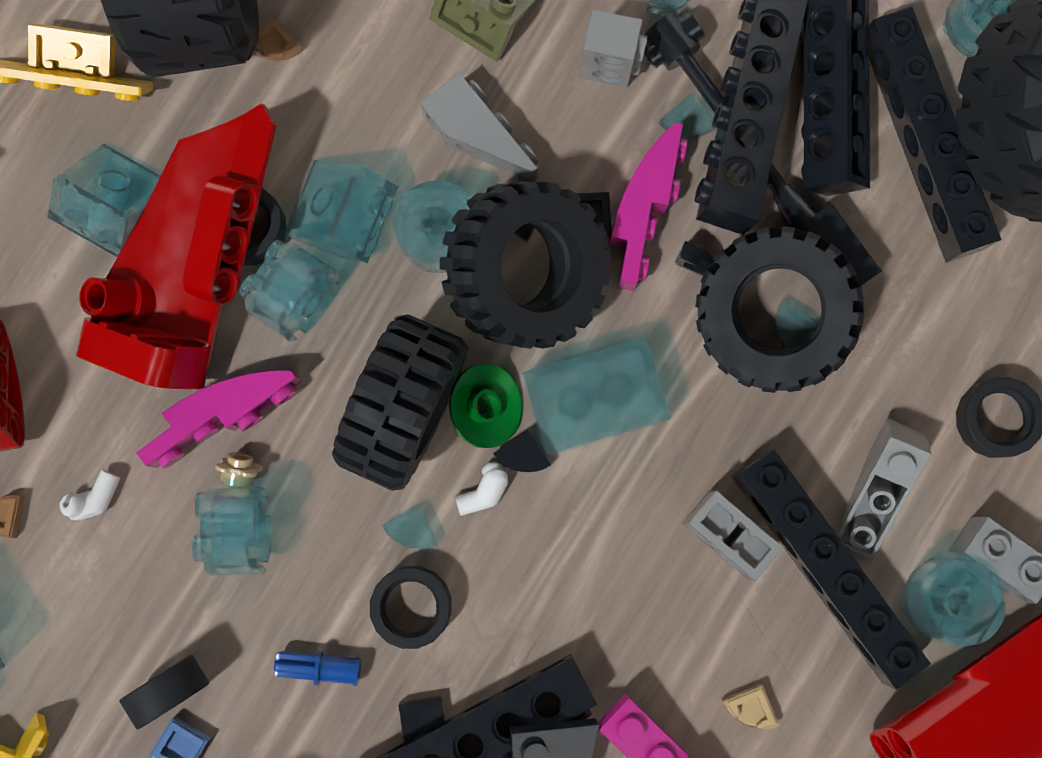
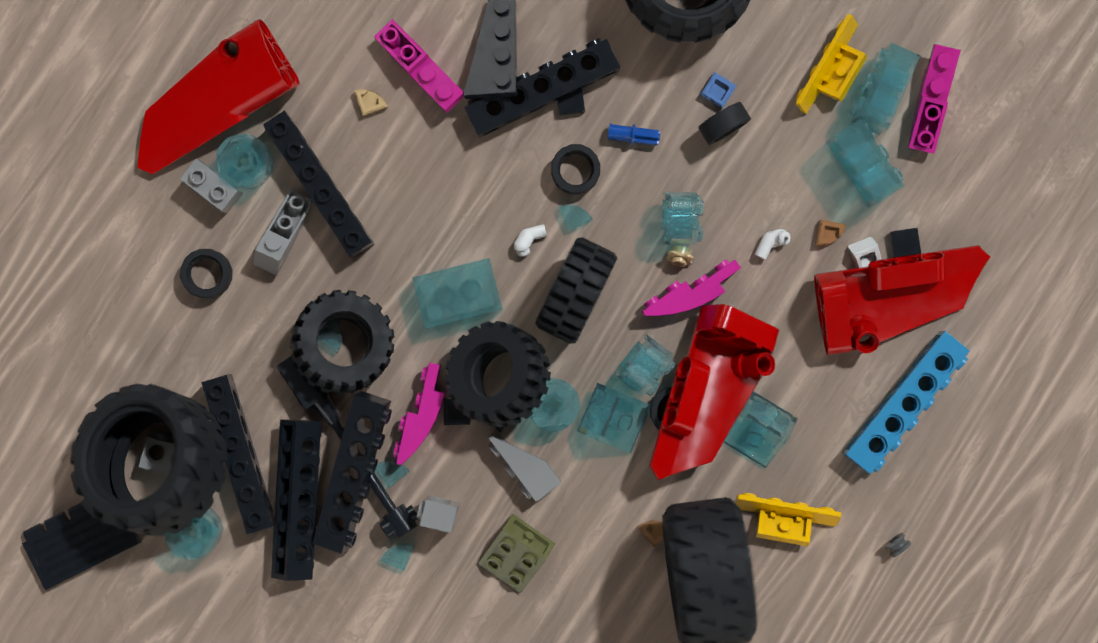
camera: 175 degrees left, 5 degrees up
(498, 402) = (518, 289): green dish -> none
(522, 454) = (504, 260): black tile -> none
(694, 258) = (391, 379): black tile -> none
(733, 535) = (377, 205): light grey brick -> none

